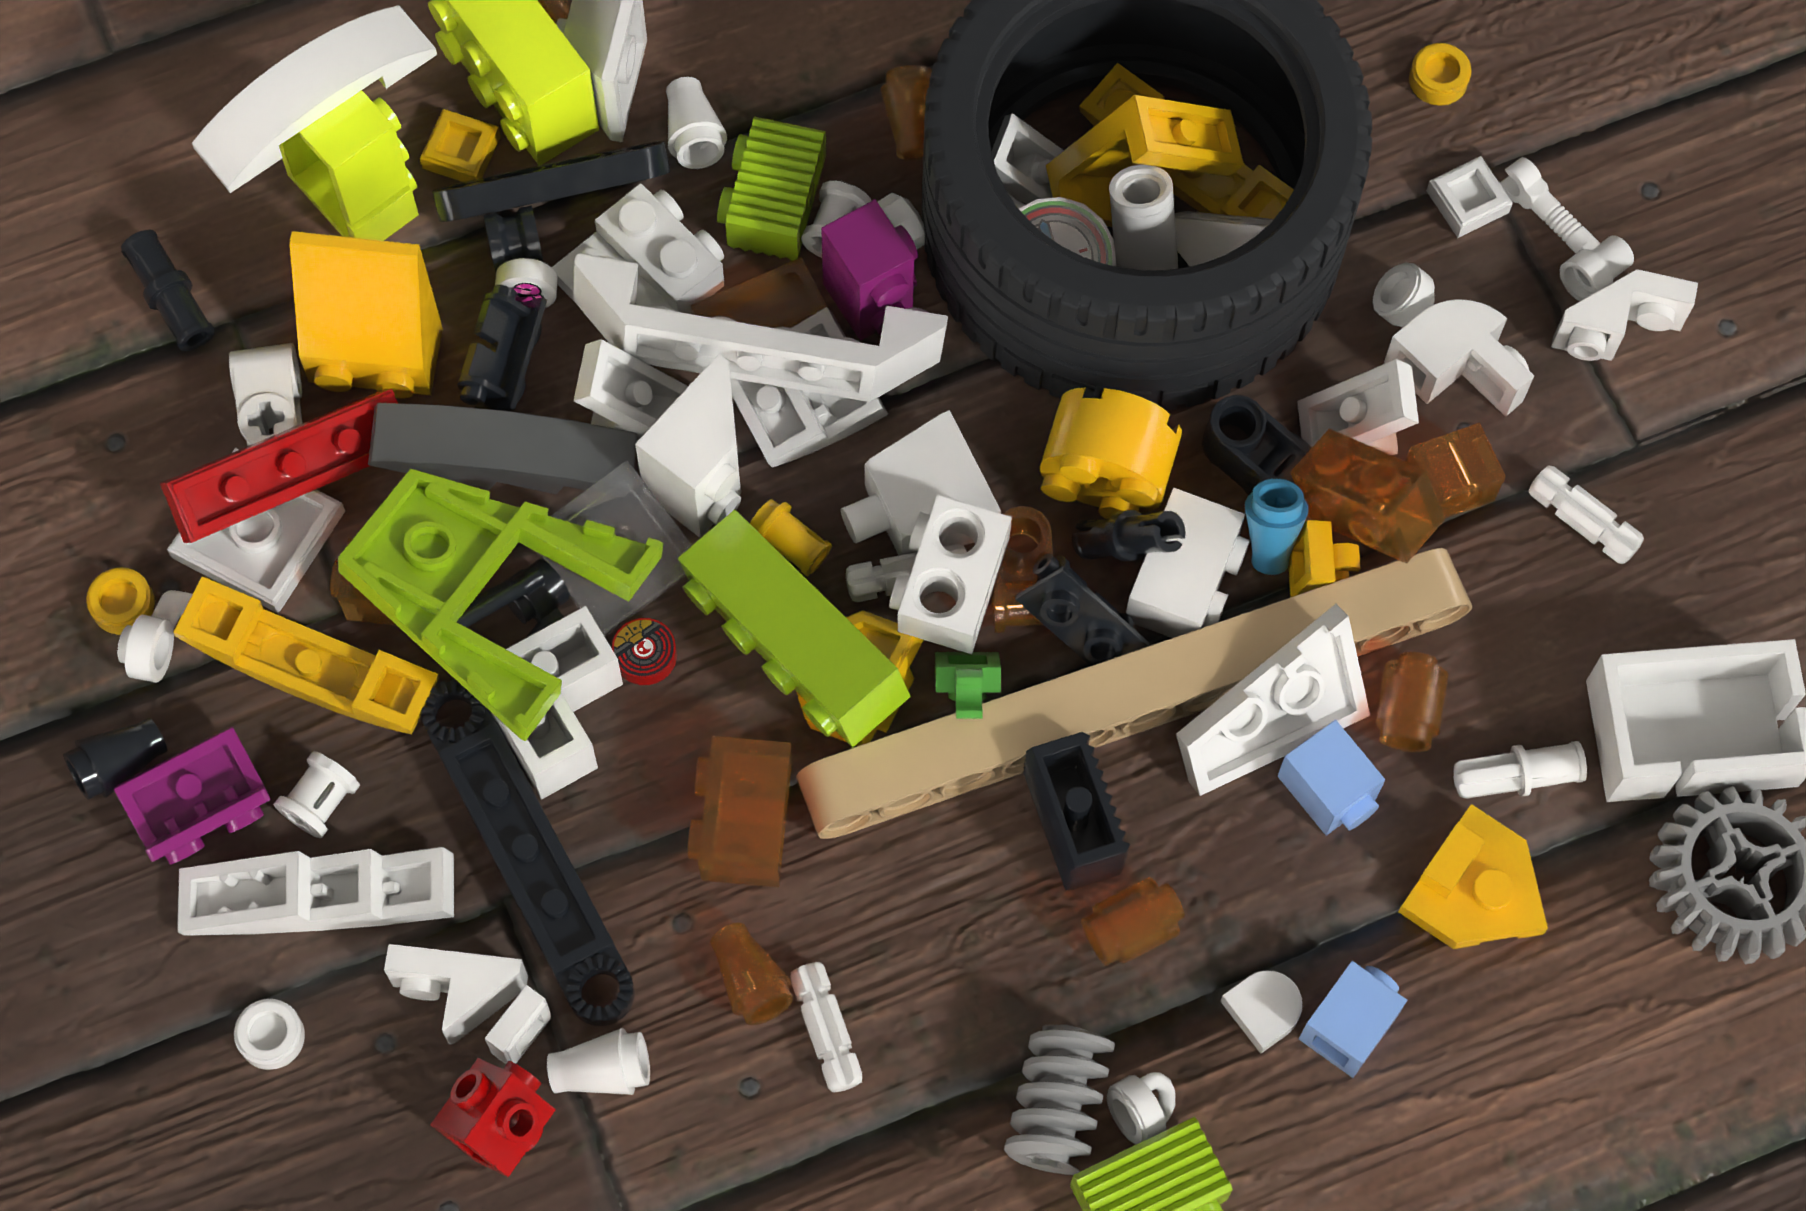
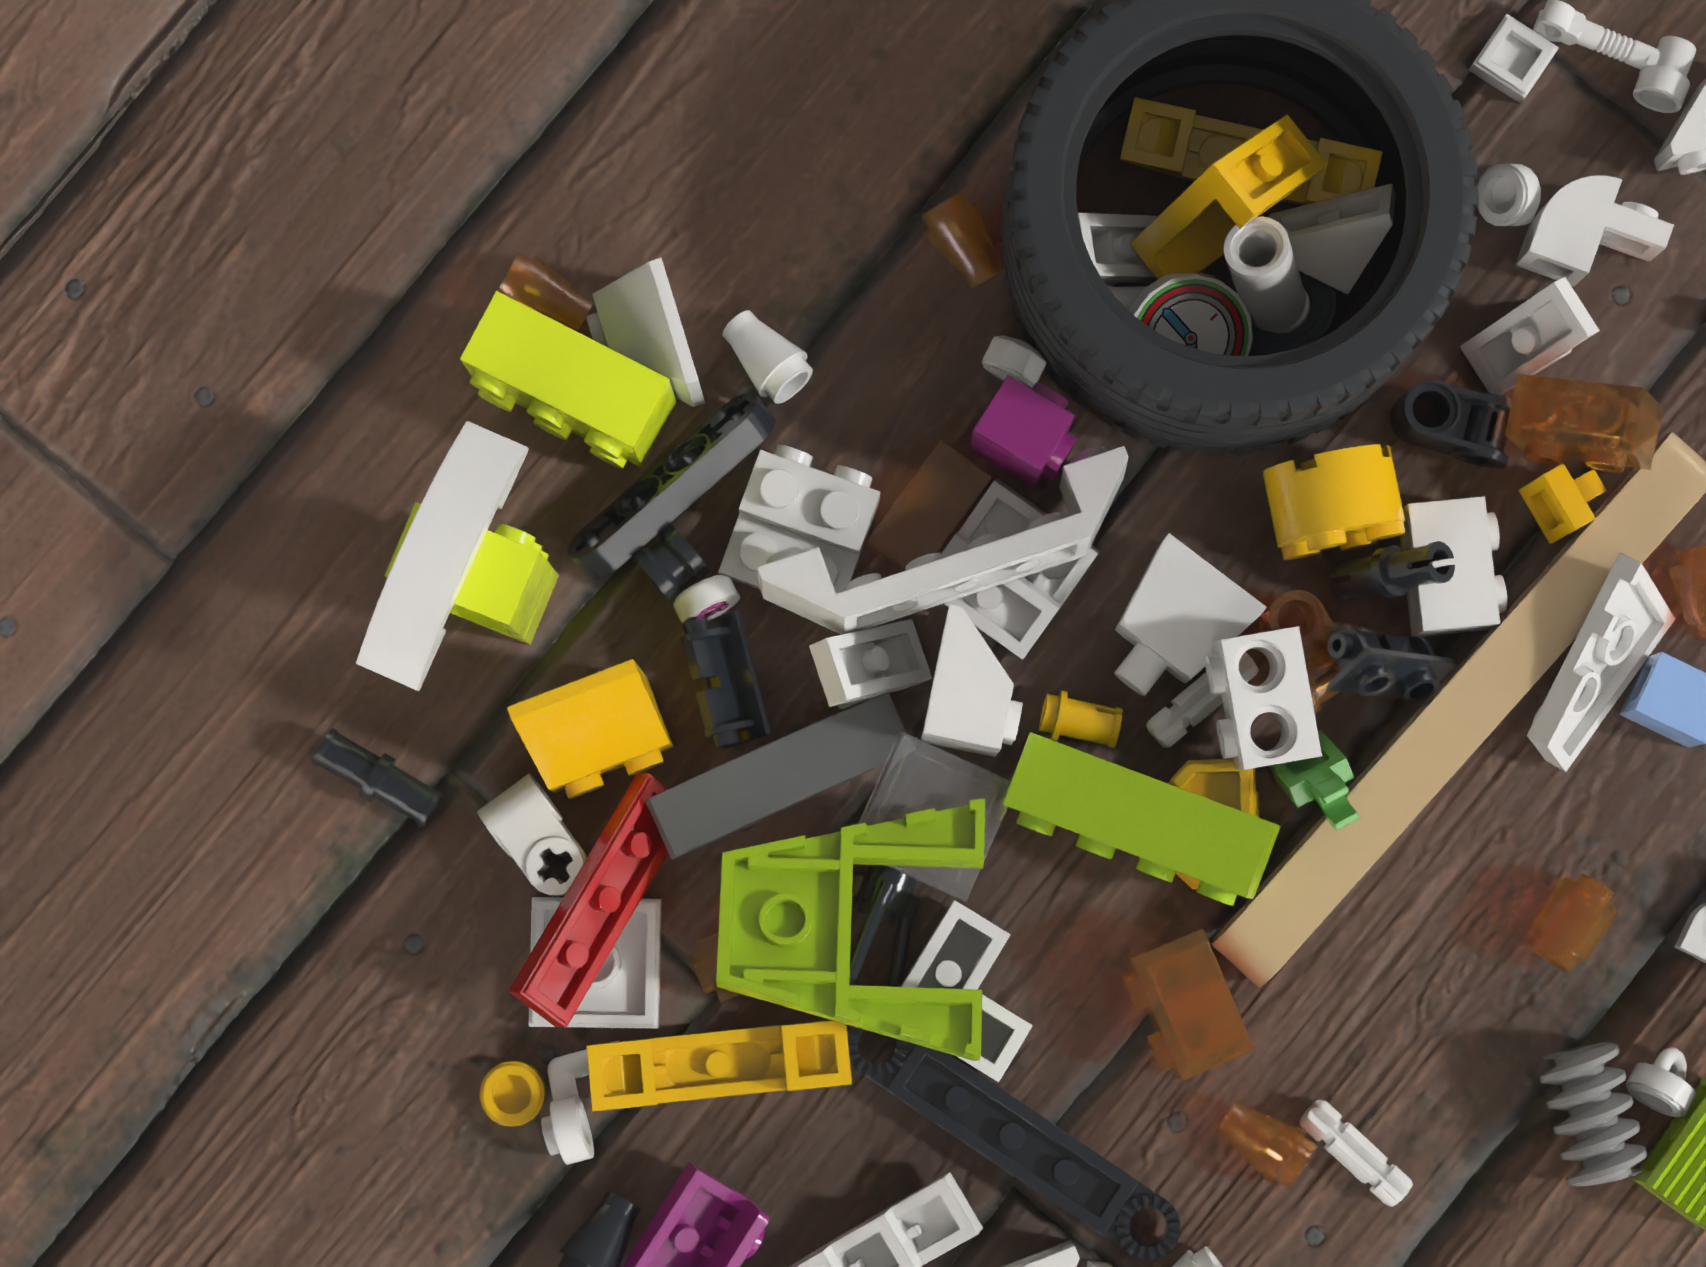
camera: 25 degrees left, 15 degrees up
(317, 794) = (800, 1183): white bush -> none
(460, 147) = (561, 490): yellow tile -> none
(645, 651) = (1009, 894): tile -> none
(773, 188) = (880, 385): lime brick -> none
(836, 201) = (955, 388): white bush -> none
(1076, 810) = (1477, 854): black brick -> none
(1274, 522) = (1512, 486): dark azure cone -> none
(1460, 469) = (1640, 348): clear orange brick -> none

